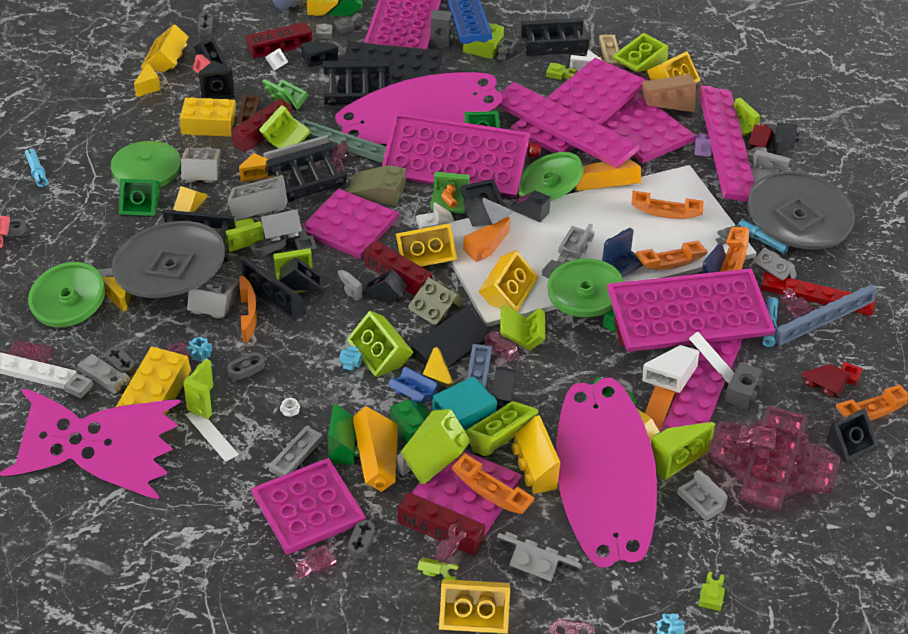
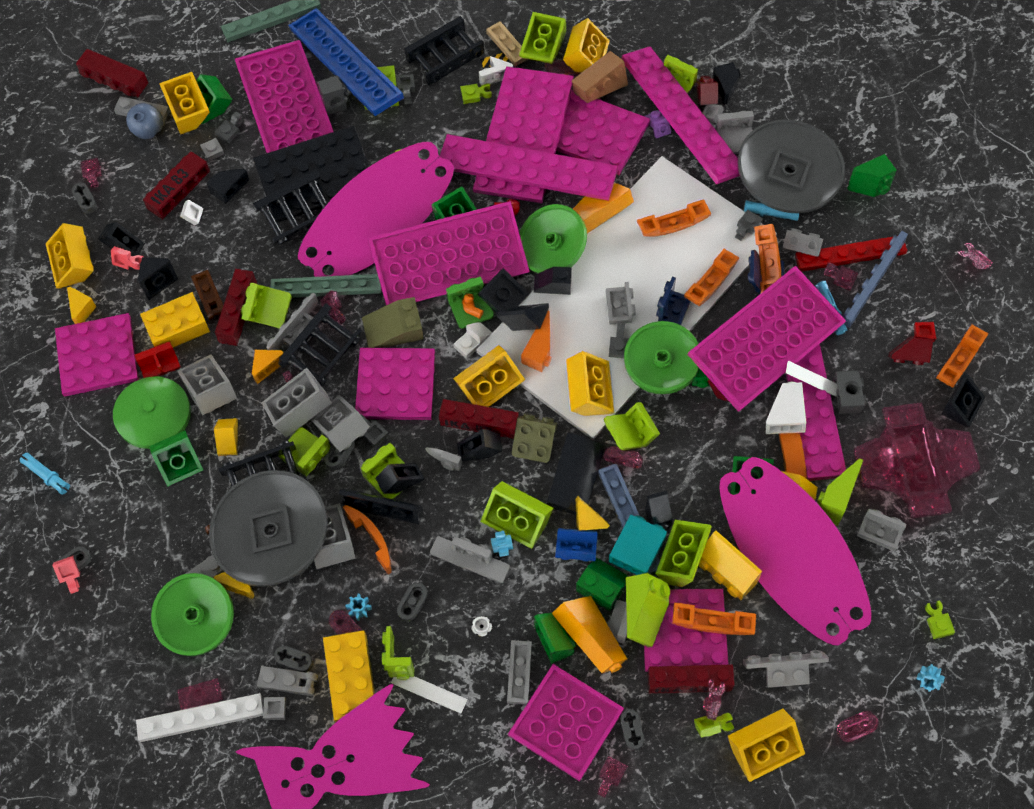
camera: 25 degrees left, 20 degrees up
(135, 115) = (96, 354): none -> dark pink plate
(177, 134) = (158, 360): none -> red panel
(224, 10) = (90, 171): none -> clear pink plate
(287, 92) = (233, 252): bright green bracket -> none
(318, 356) = (470, 557): none -> light grey bracket
(872, 243) = (873, 177): none -> green slope

